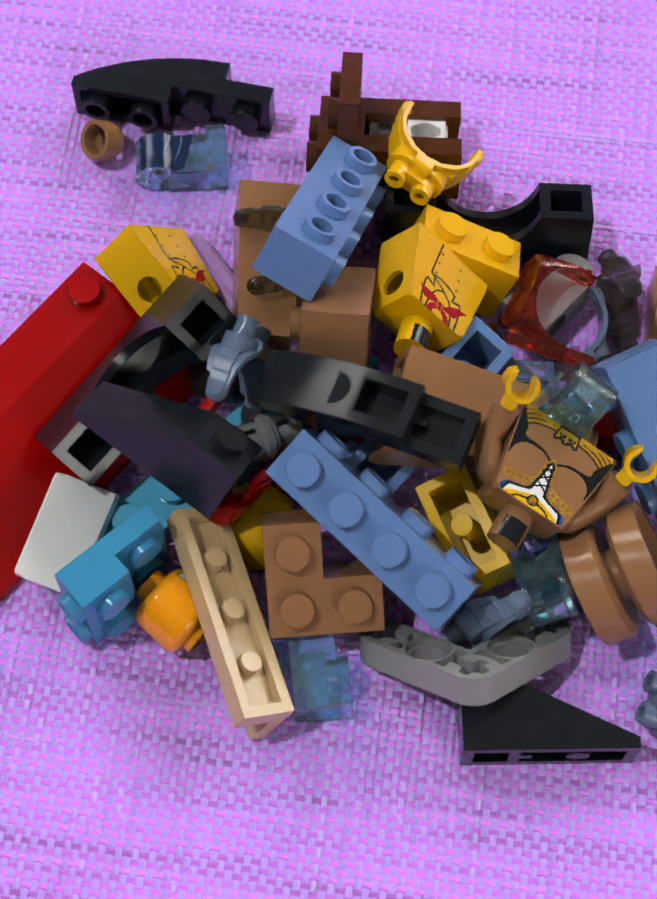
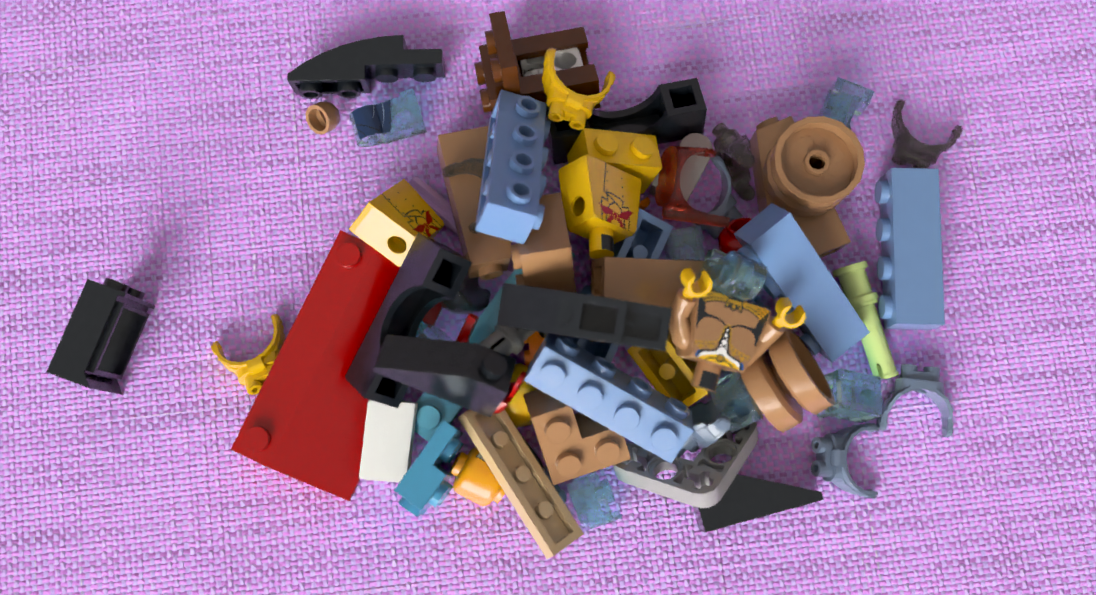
camera: 15 degrees left, 15 degrees up
(240, 353) = (479, 290): sand blue helmet -> none

